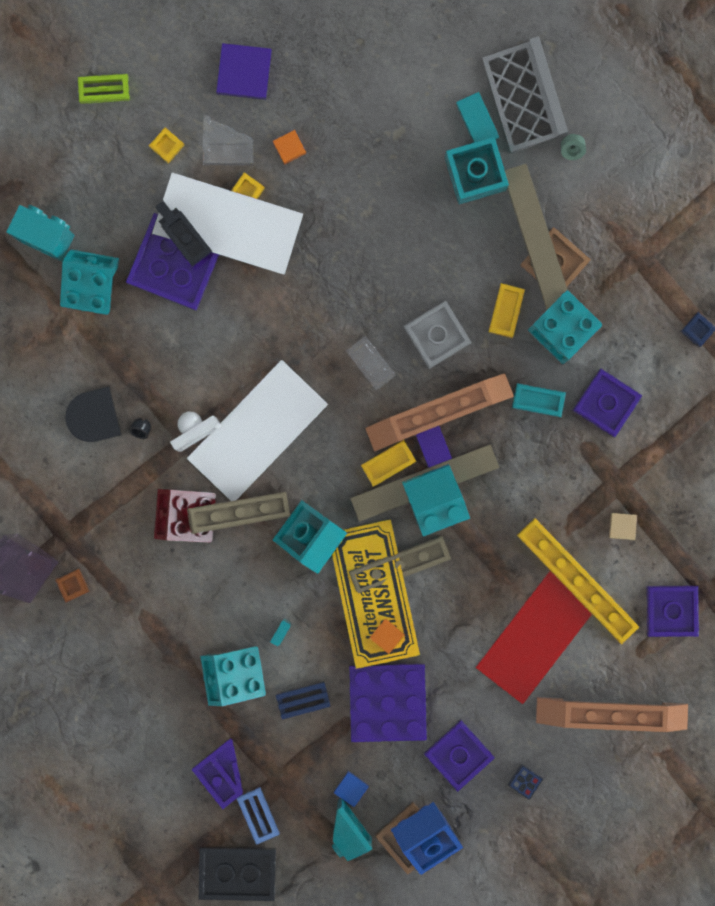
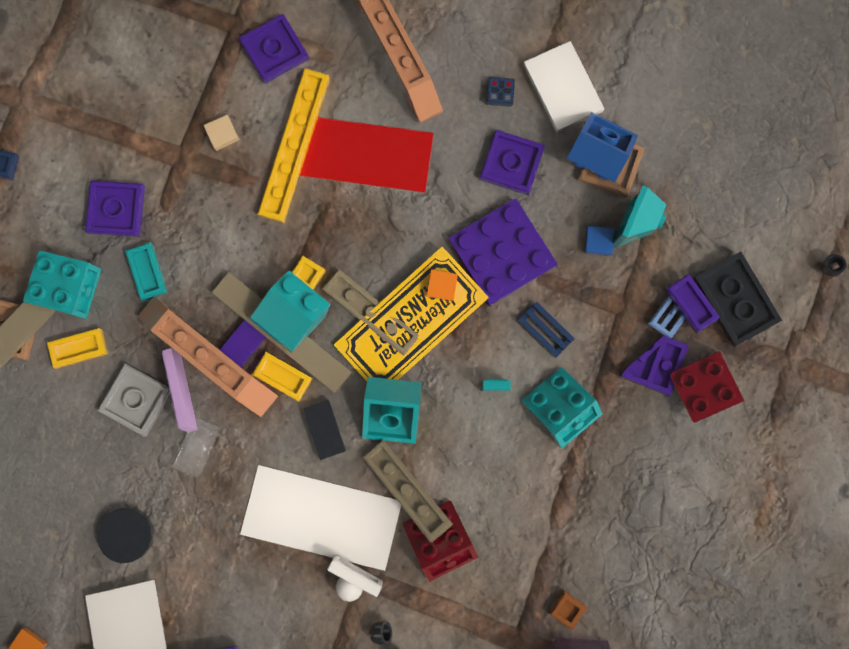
camera: 115 degrees left, 5 degrees down
(180, 803) = (706, 387): none -> dark red bracket
(254, 833) = (692, 303): none -> dark purple tile
(325, 473) = (324, 430): none -> black tile
(332, 269) = (125, 535): none -> black tile
(423, 375) = (179, 390): none -> lavender tile
(462, 532) = (308, 272): none -> yellow tile
(499, 837) = (563, 86): none -> white tile

